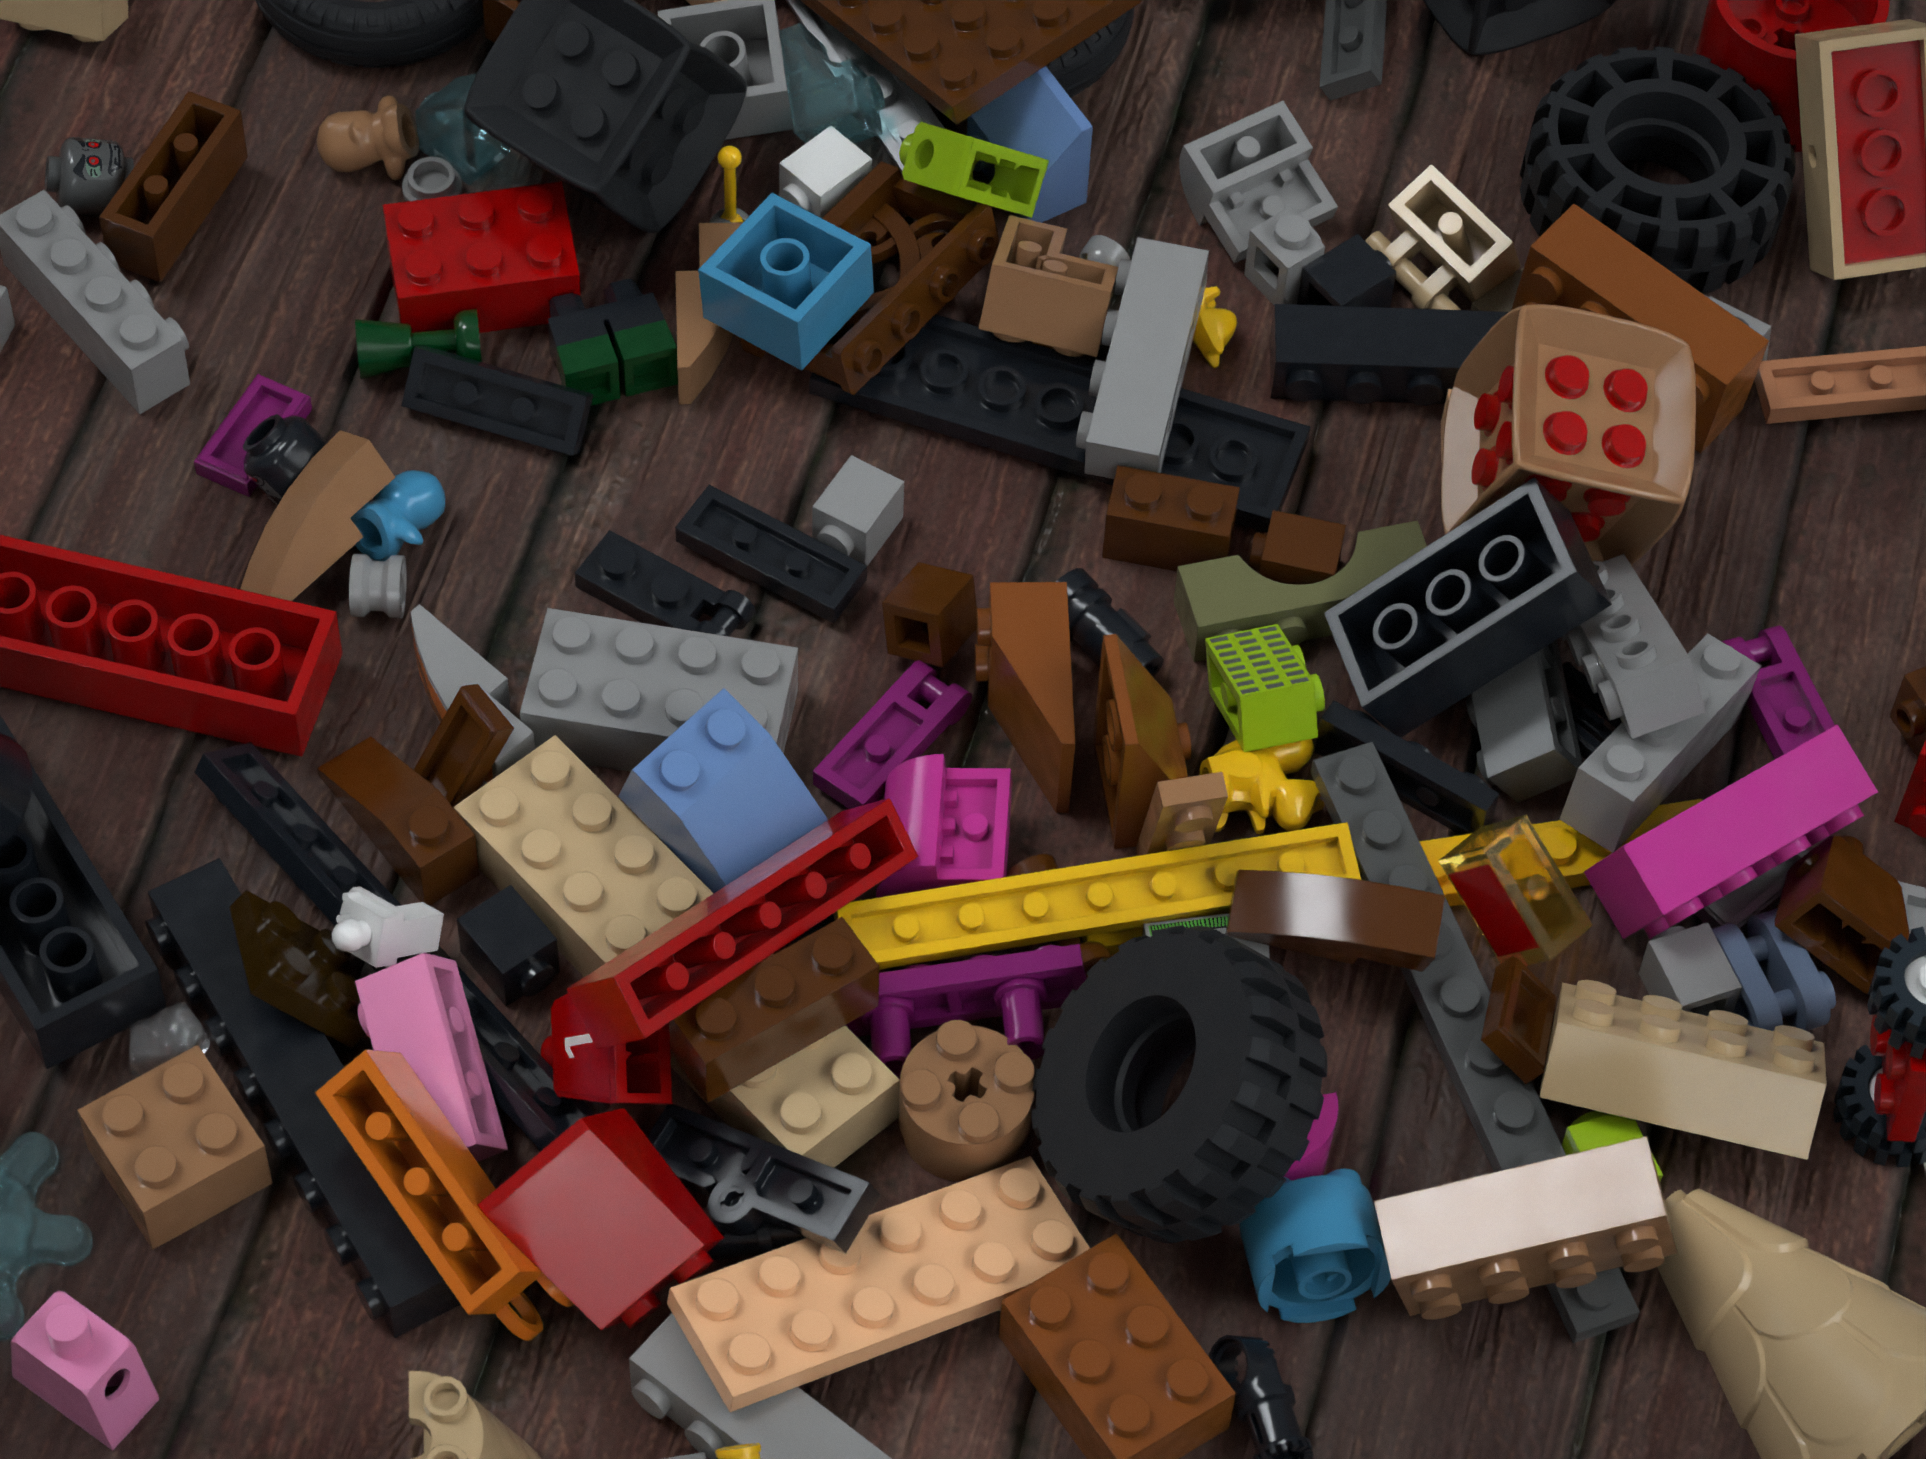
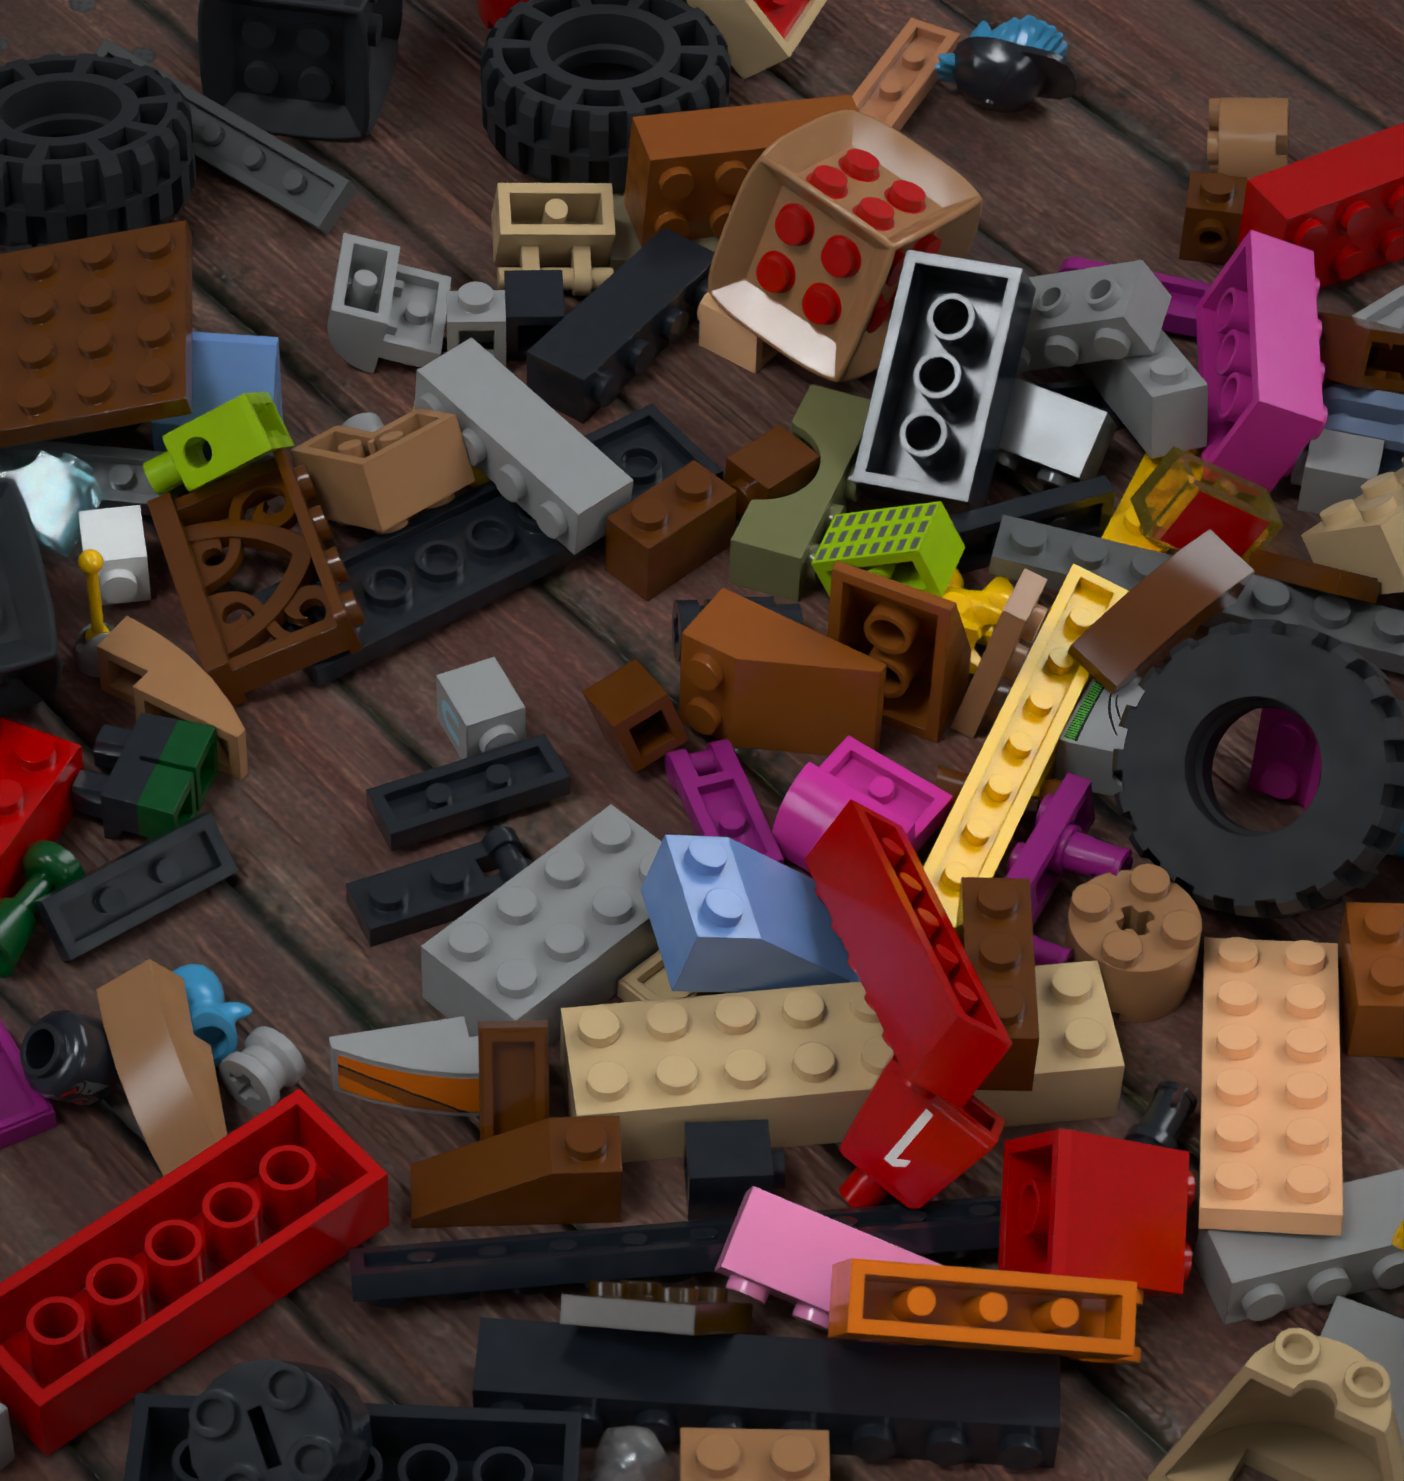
camera: 55 degrees left, 10 degrees down
(385, 932) = (659, 1233): white piece -> none
(761, 1181) = (1142, 1088): black hinge -> none
(786, 281) = (249, 600): dark azure brick -> none

